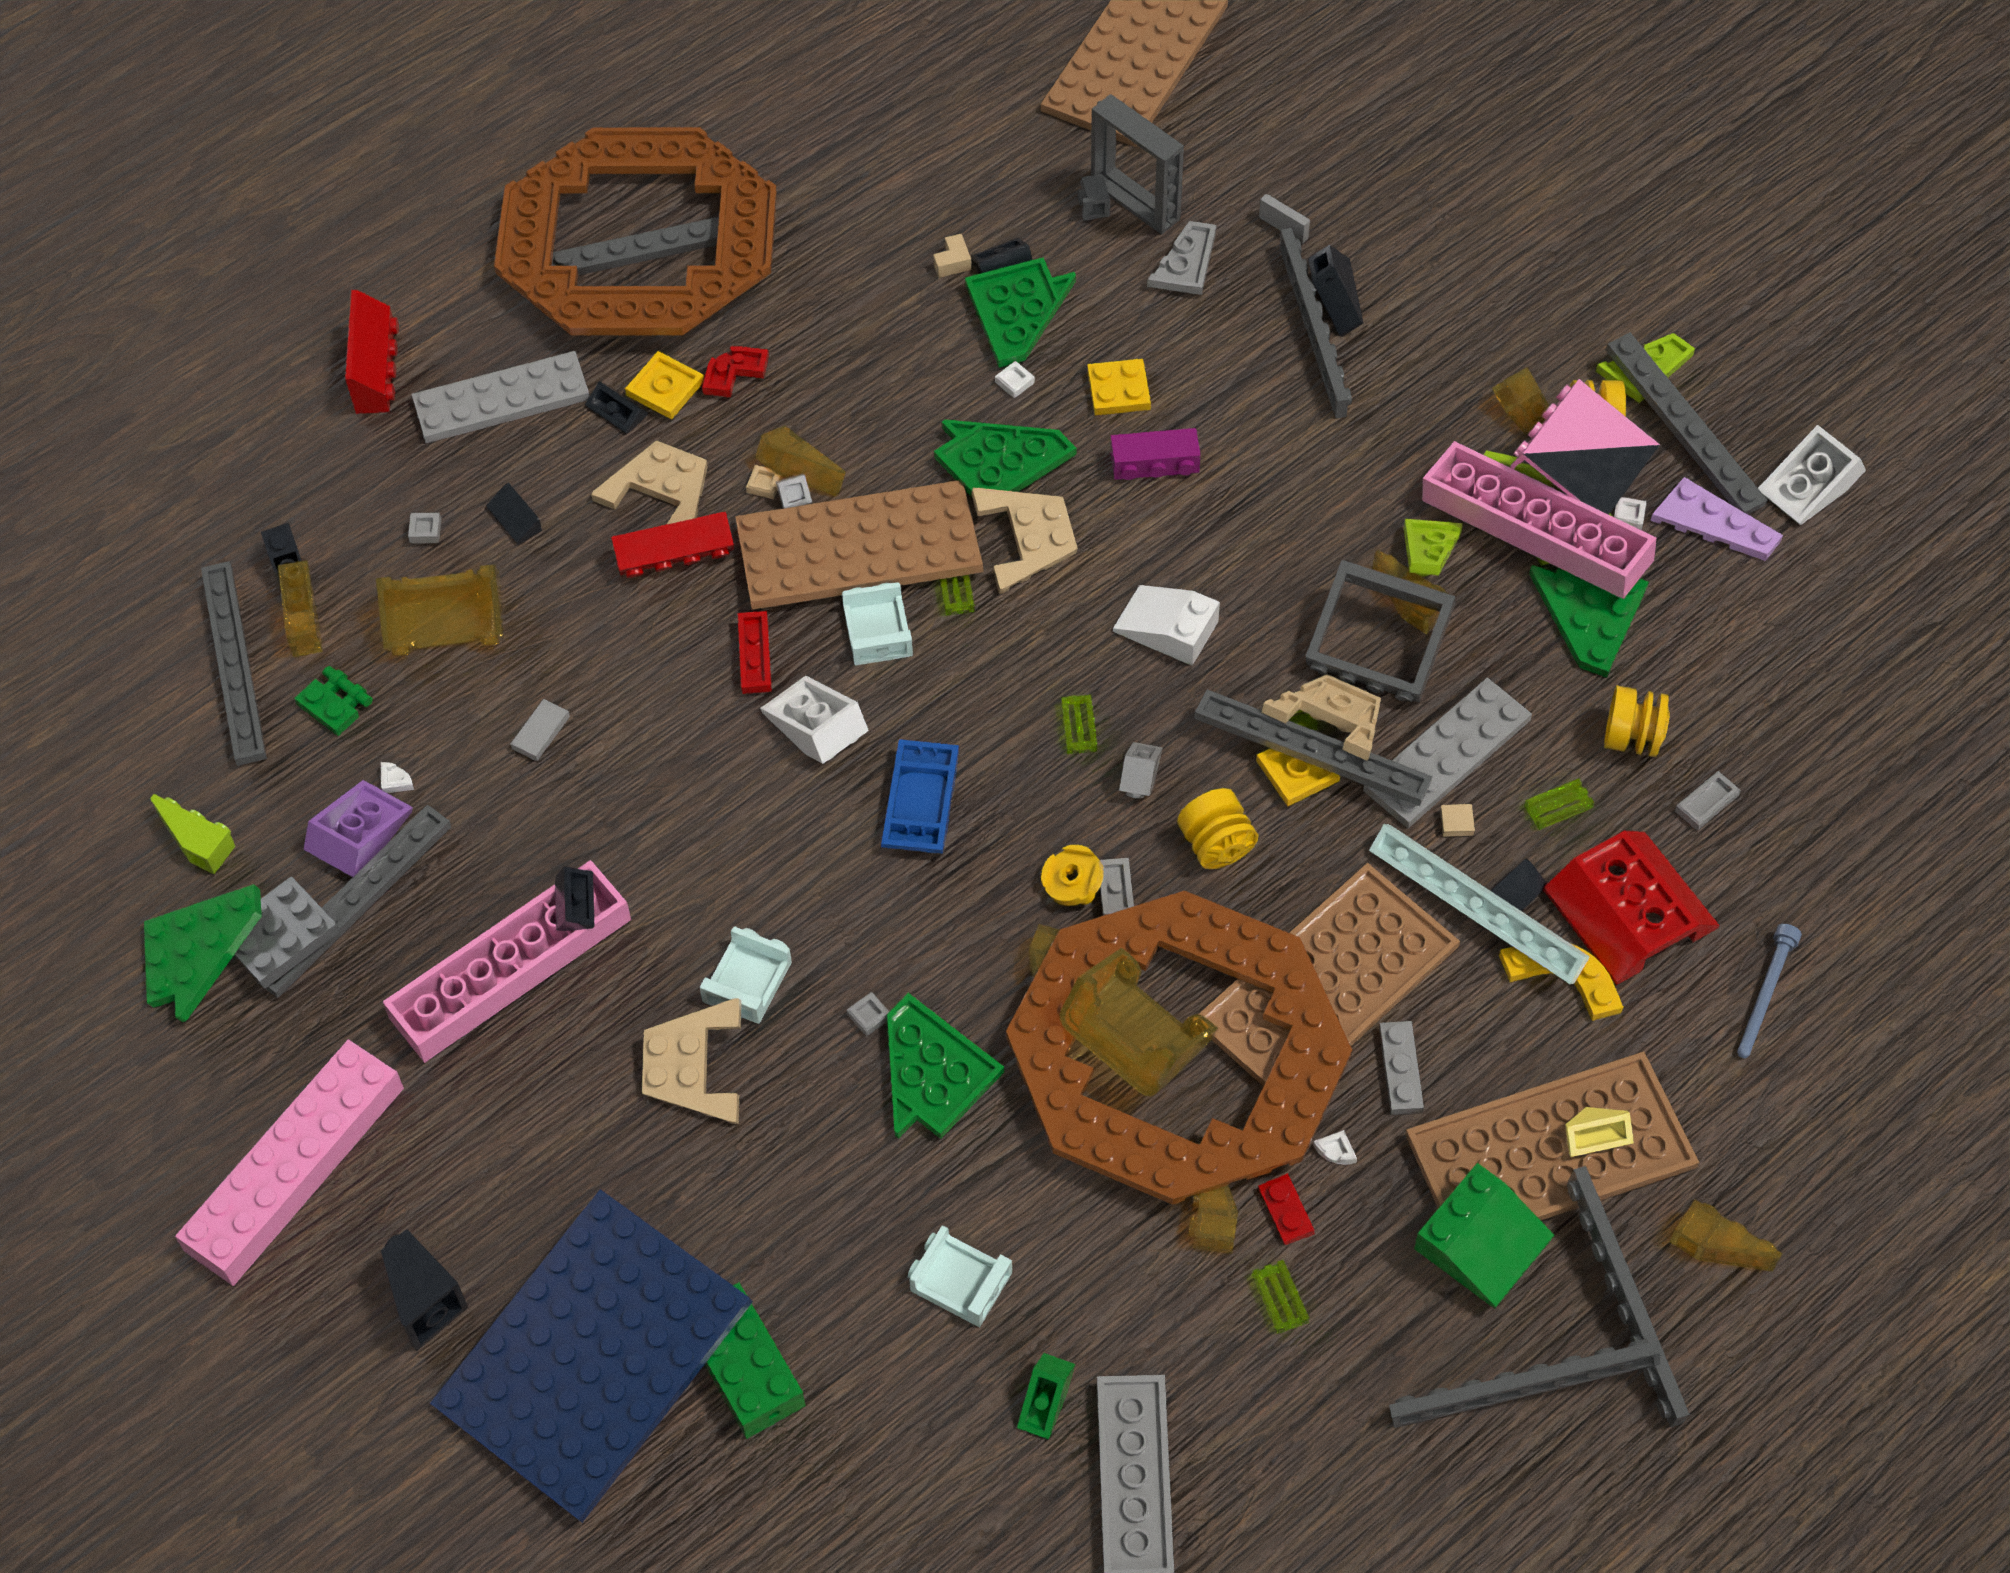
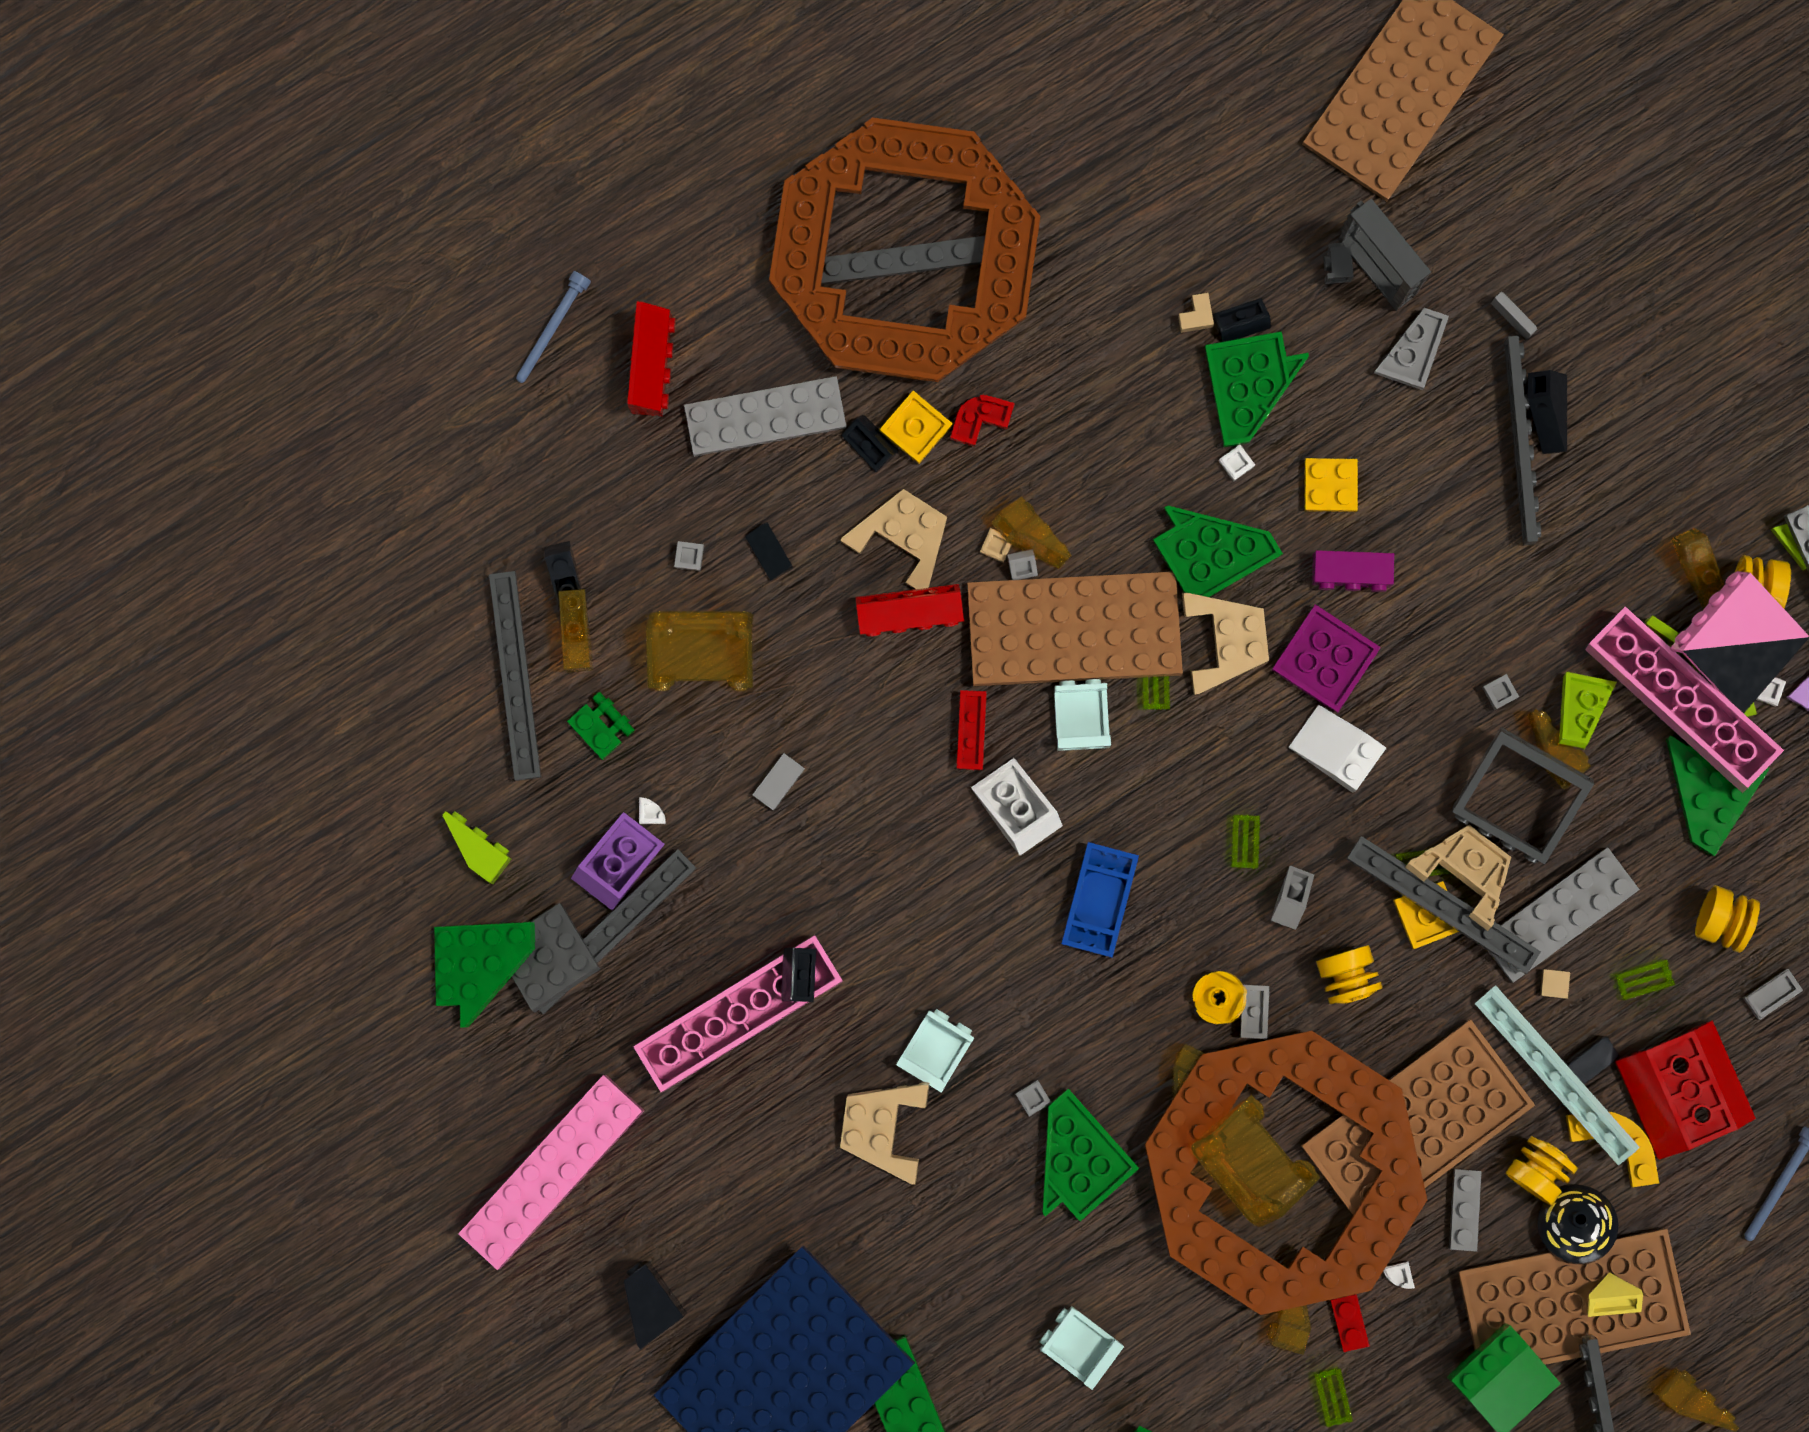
camera: 10 degrees right, 25 degrees up
(291, 303) = (577, 285): none -> sand blue piece
(1139, 539) = (1326, 658): none -> magenta plate
(1337, 546) = (1500, 692): none -> light grey plate
(1480, 1002) = (1541, 1170): none -> yellow wheel
(1537, 1062) = (1574, 1241): none -> black dish

